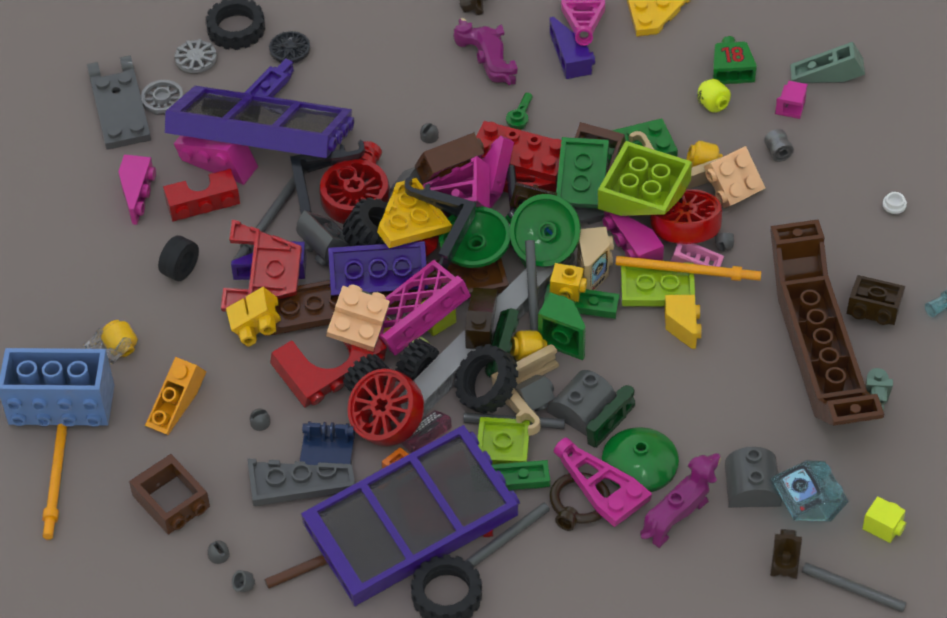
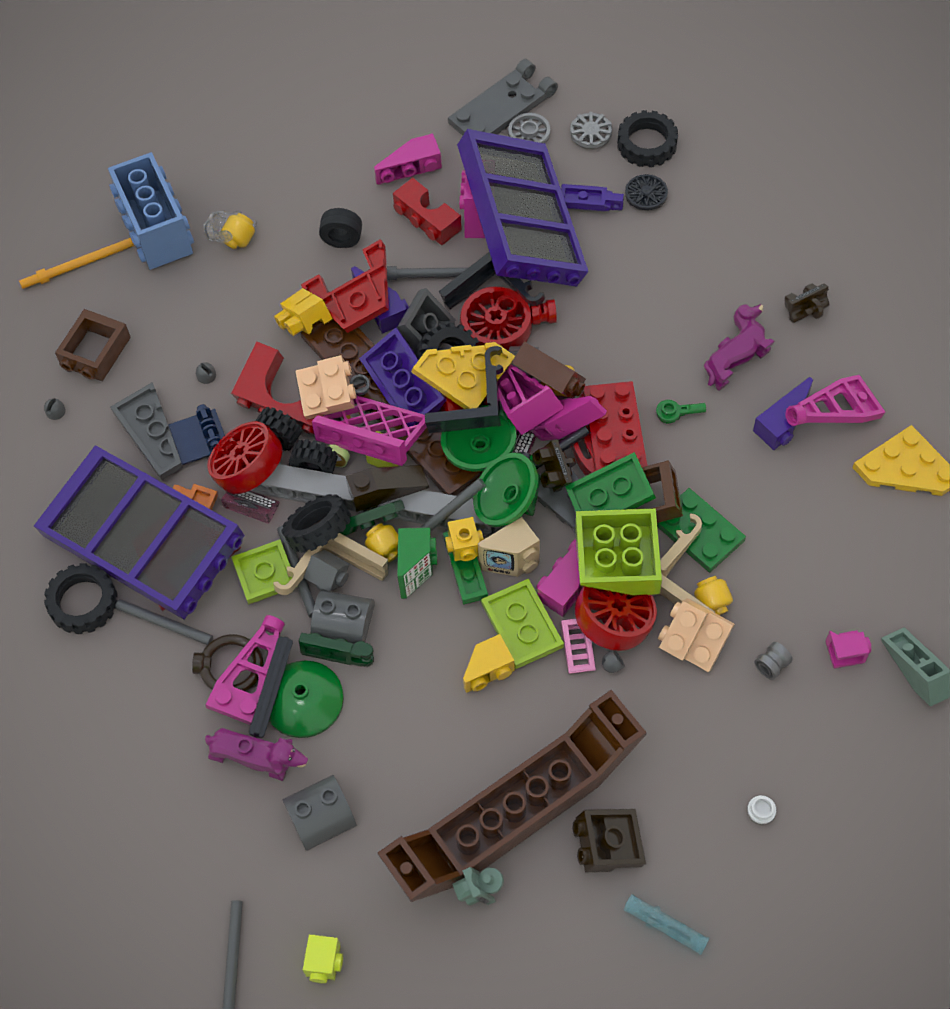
camera: 65 degrees right, 10 degrees up
(175, 395) = (199, 299): light orange slope -> none
(243, 581) = (27, 440): dark grey hinge -> none
(295, 571) = (51, 469): reddish brown bar -> none
(432, 133) = (607, 348): dark grey hinge -> none
(525, 474) = (232, 601): green plate -> none
(624, 468) = (270, 687): none -> black axle
(713, 95) = (805, 570): neon yellow head -> none
(733, 62) = (864, 568): green torso -> none
(735, 273) = (566, 686): light orange bar -> none
(786, 554) = (227, 877): dark brown hips -> none
(810, 491) = (314, 868): clear light blue slope -> none

